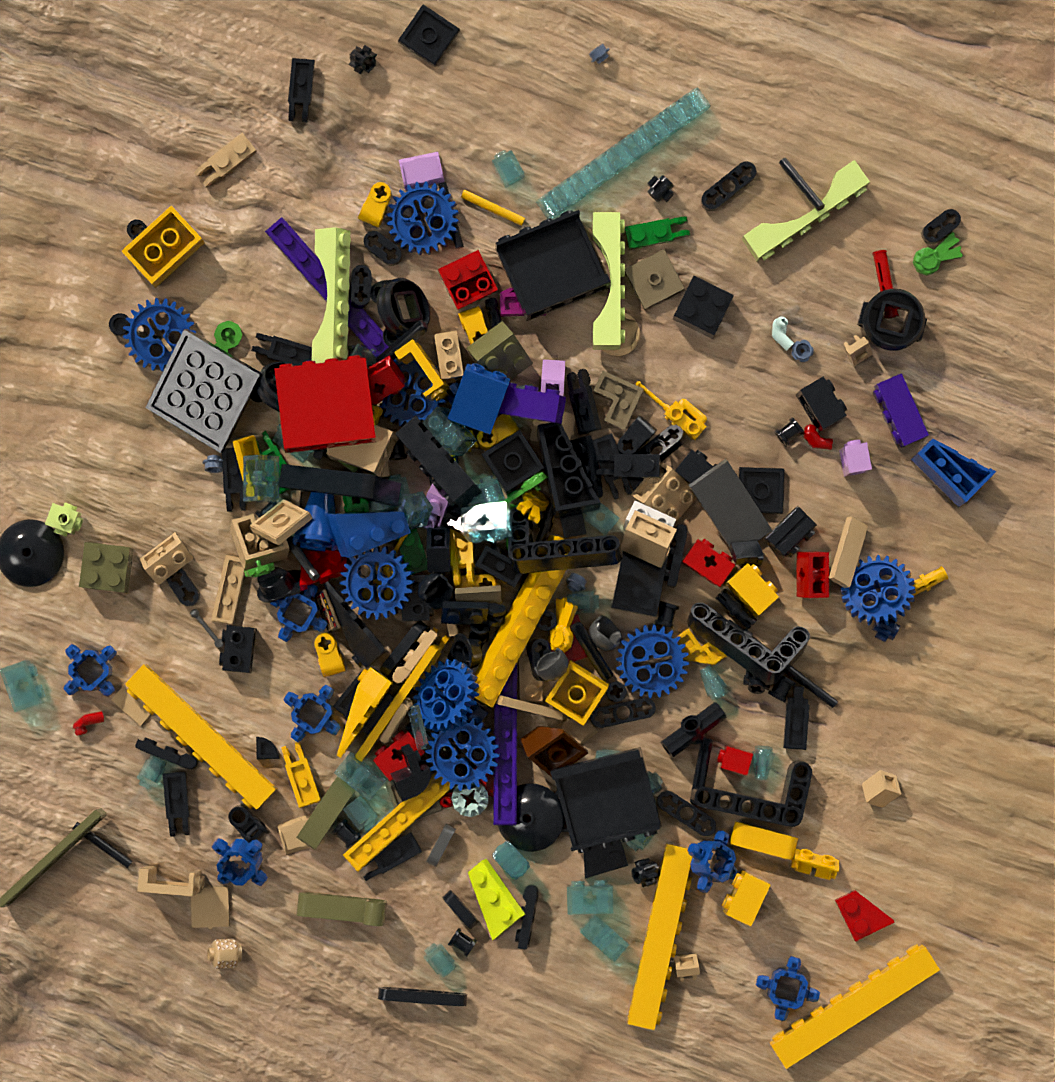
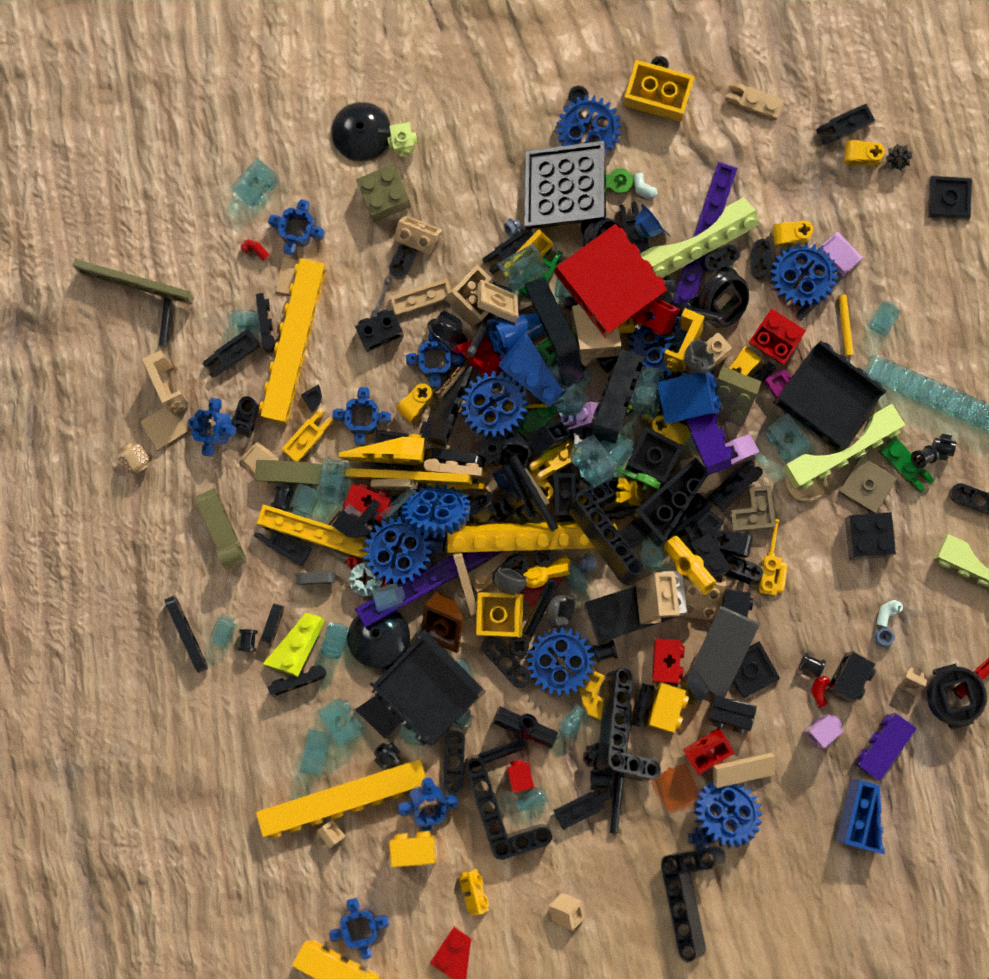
camera: 65 degrees right, 5 degrees down
(248, 318) = (643, 189): none -> light aqua arm
(259, 570) = (450, 307): bright green piece -> none
(290, 335) = (647, 224): none -> blue piece
(336, 93) = (860, 153): none -> yellow piece
(449, 368) = (698, 358): none -> dark grey hair
(483, 595) = (533, 493): none -> black bar
(501, 787) = (388, 597): none -> clear light blue brick
(557, 321) = (785, 428): none -> clear light blue brick
(634, 490) = (695, 571): none -> yellow piece
(659, 216) = (924, 458): none -> black bush
(676, 554) = (659, 630): black hinge -> none
(763, 840) = (468, 838): yellow beam -> none
(827, 622) = (676, 786): none -> clear orange piece
(929, 580) = (762, 852): yellow pin -> none
(929, 672) = (686, 895): none -> black beam

